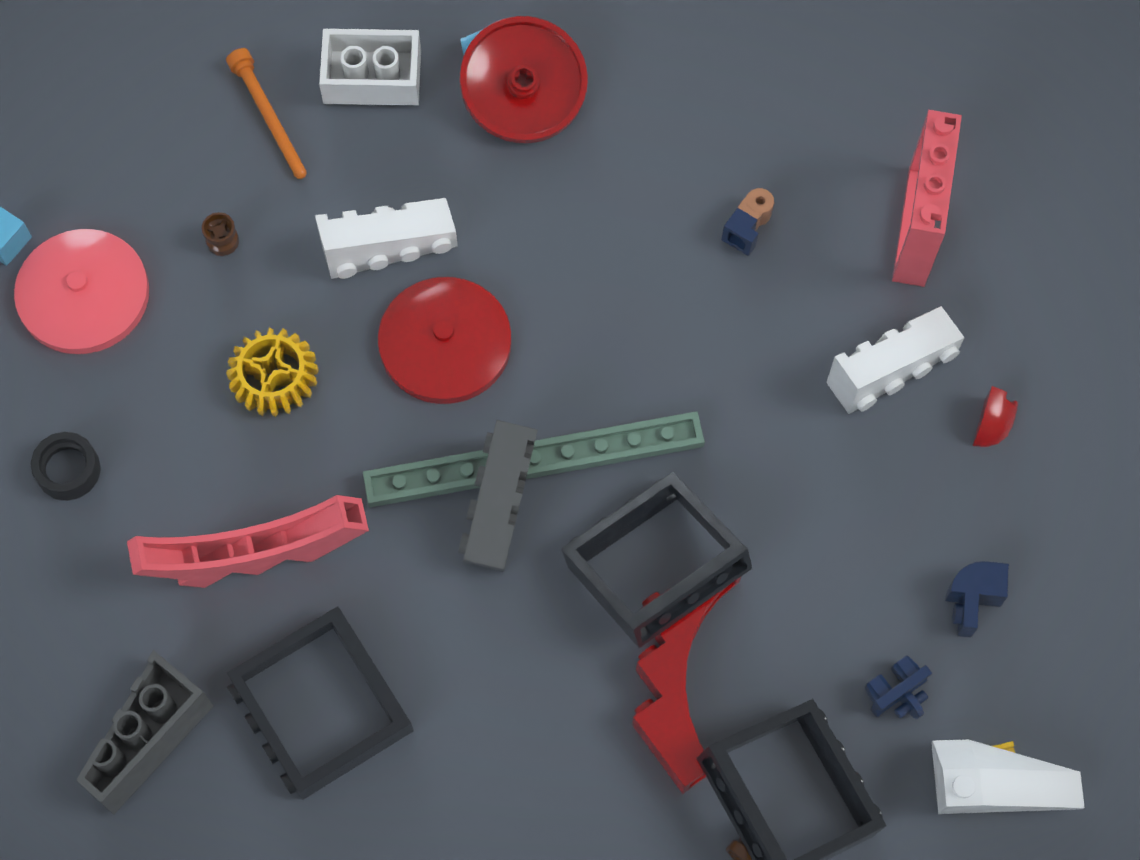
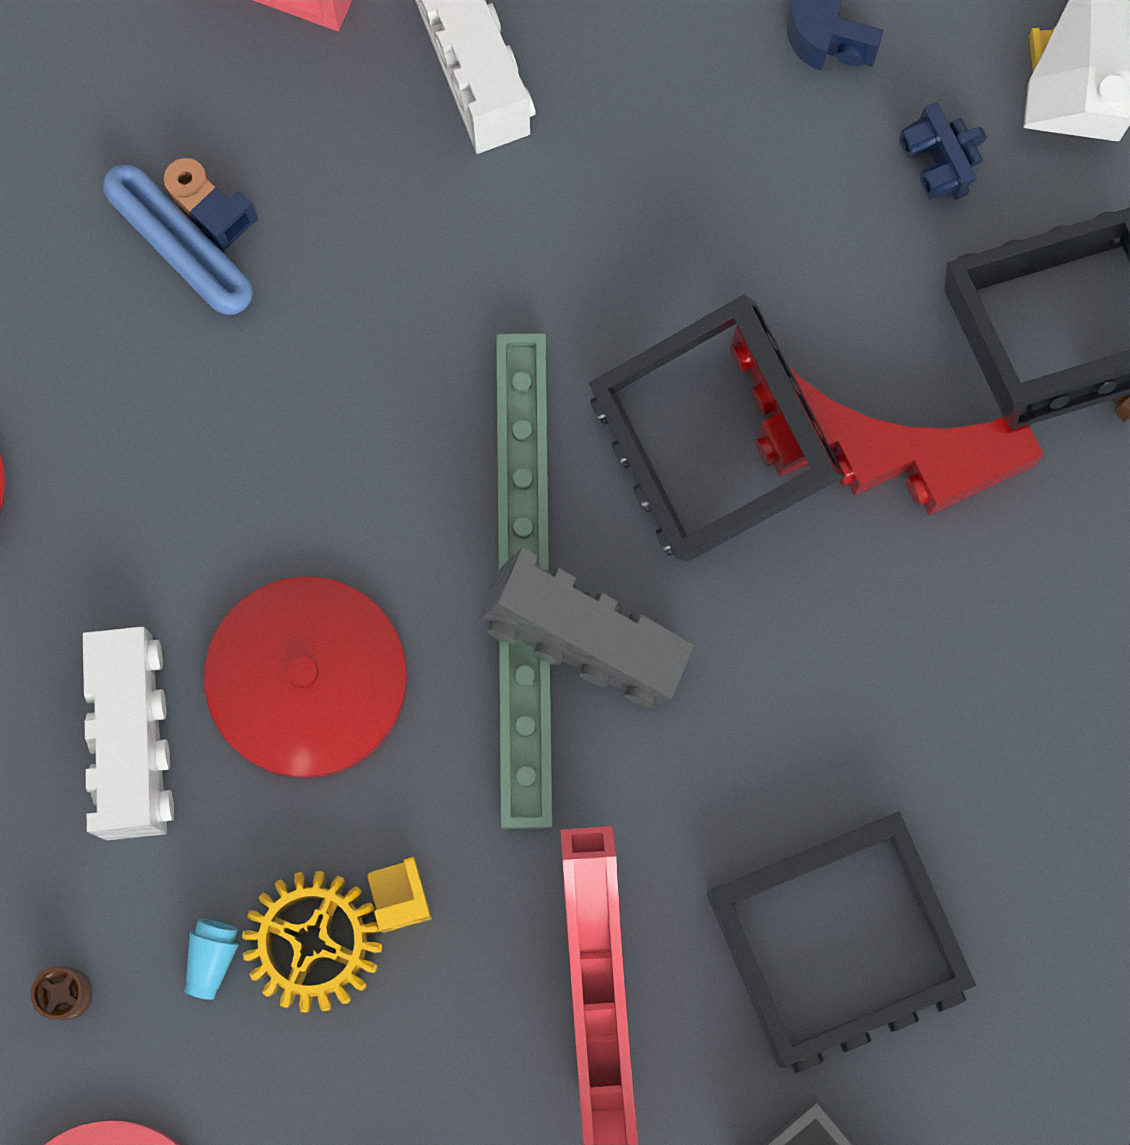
camera: 80 degrees left, 10 degrees up
(255, 314) = (209, 956): none -> medium azure cone
(309, 421) = (399, 896): none -> yellow panel
(719, 207) = (177, 239): none -> medium blue piece

